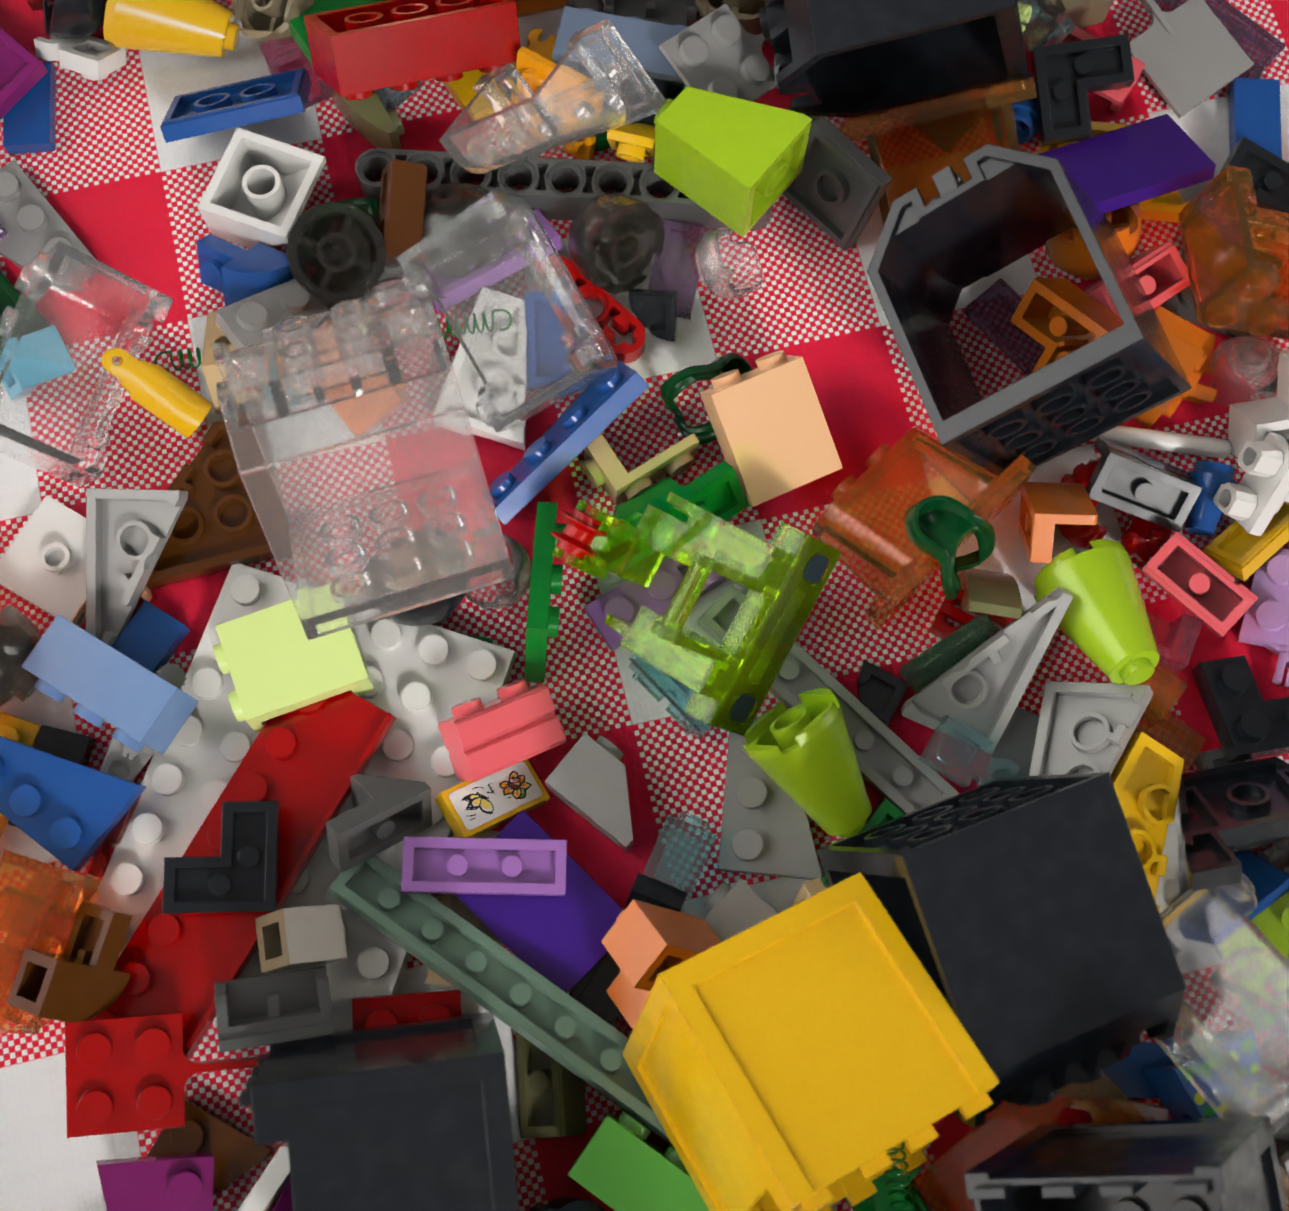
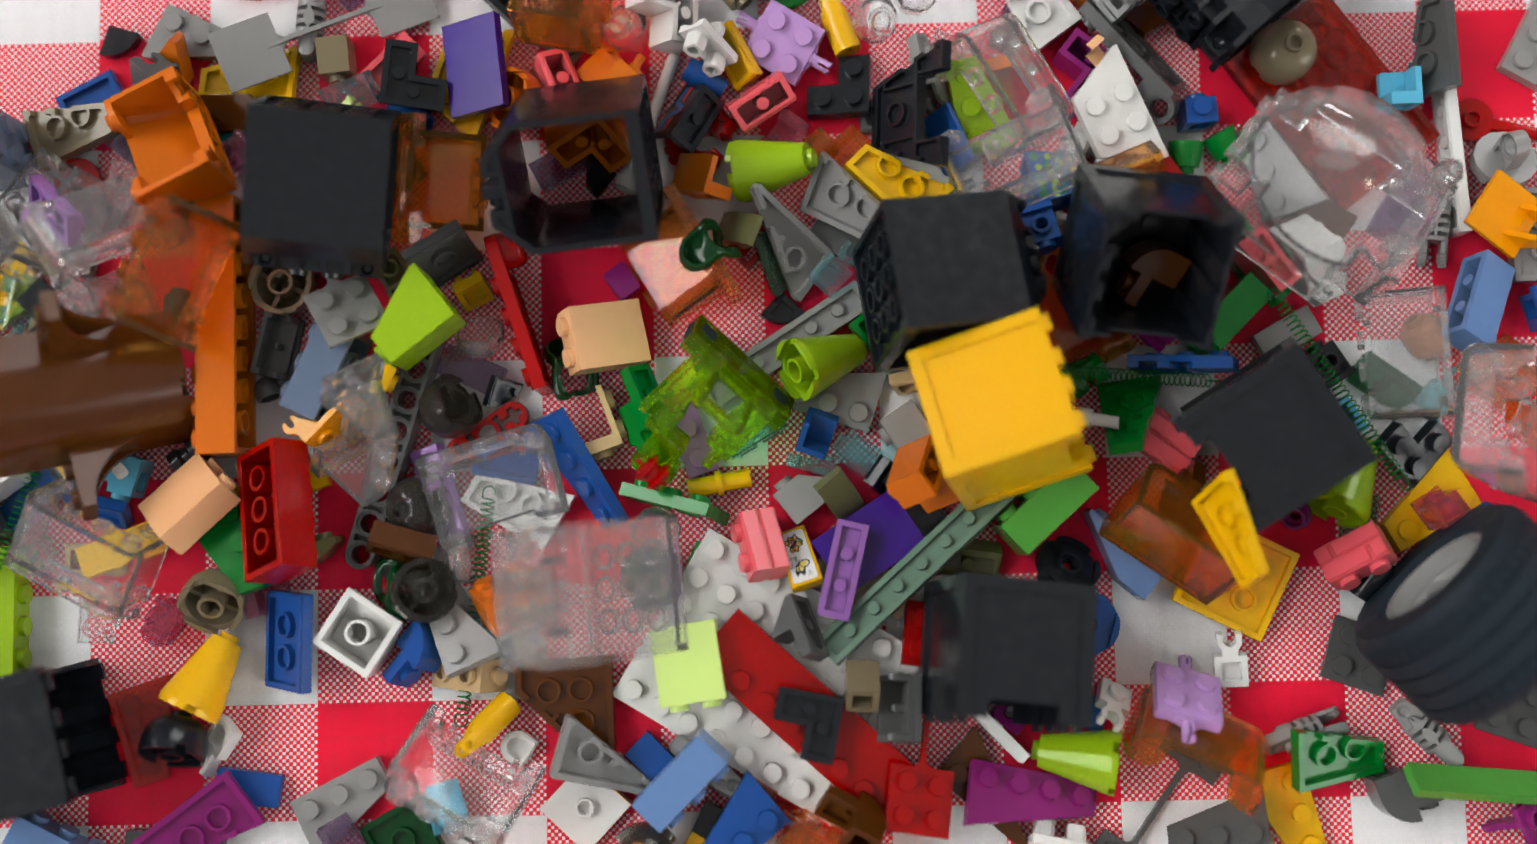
camera: 75 degrees left, 10 degrees up
(135, 448) = (518, 746): none -> white tile
(588, 653) = (719, 482): none -> yellow pin
(607, 838) = (839, 494): none -> olive slope
(648, 806) = (810, 465): none -> clear light blue plate
(698, 783) = (817, 433): none -> blue panel
(775, 301) = (504, 257): none -> red plate
(793, 241) = (472, 291): none -> yellow tile
(861, 440) = (622, 281): none -> magenta slope
(1008, 372) = (597, 177): none -> black tile
(1135, 1082) = (1041, 216): none -> blue brick

